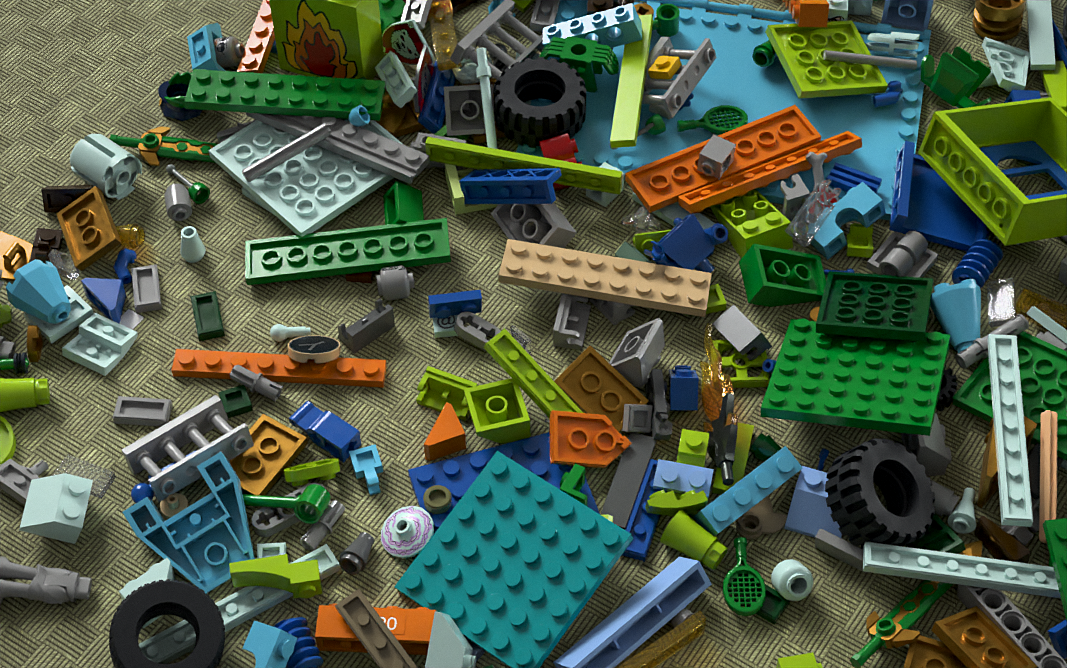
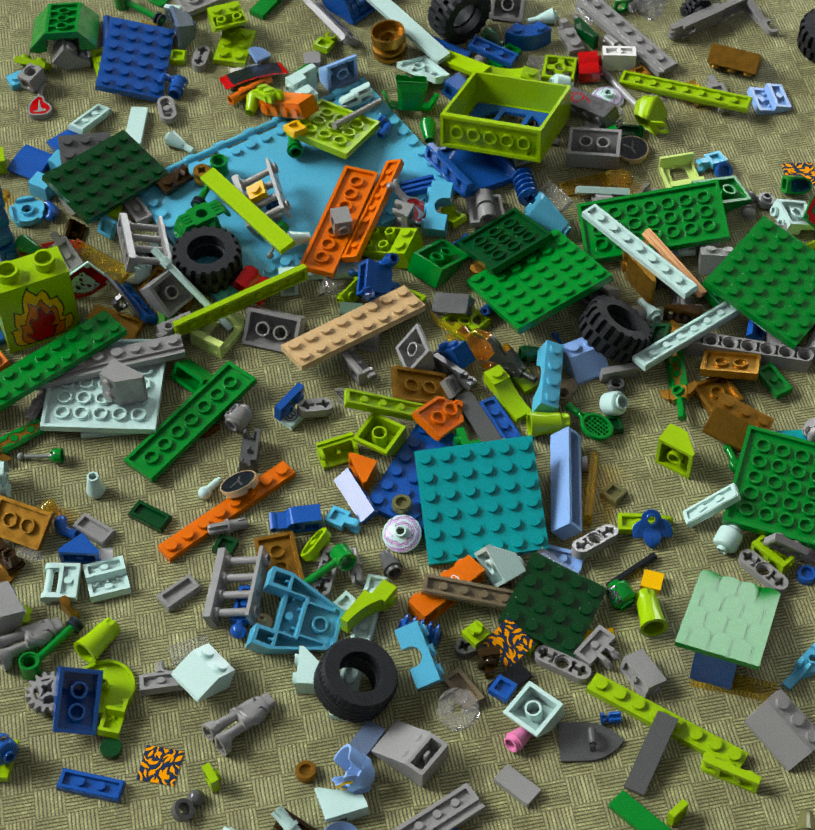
camera: 45 degrees left, 0 degrees up
(39, 292) = (49, 575): medium azure cone -> none
(178, 202) = (53, 469): light grey brick -> none
(286, 152) = (94, 393): light grey axle -> none
(308, 161) = (122, 384): none -> light grey slope
(358, 120) = (116, 341): medium azure hinge -> none
(397, 80) = (114, 306): light aqua plate -> none
(408, 454) = (355, 496): none -> tile
(510, 186) = (248, 317): blue fence -> none
(608, 27) = (202, 189): medium azure brick -> none
(657, 145) = (299, 237): none -> light aqua cone
(667, 503) = (520, 411): lime slope -> none
(682, 477) = (509, 397): light blue plate -> none
(719, 110) = (305, 208): green piece -> none
(775, 29) = (295, 129): none -> yellow tile
(812, 214) = (424, 215): clear plate -> none
(825, 557) = (616, 384): none -> dark grey plate
(979, 348) = (576, 223): light grey pin -> none

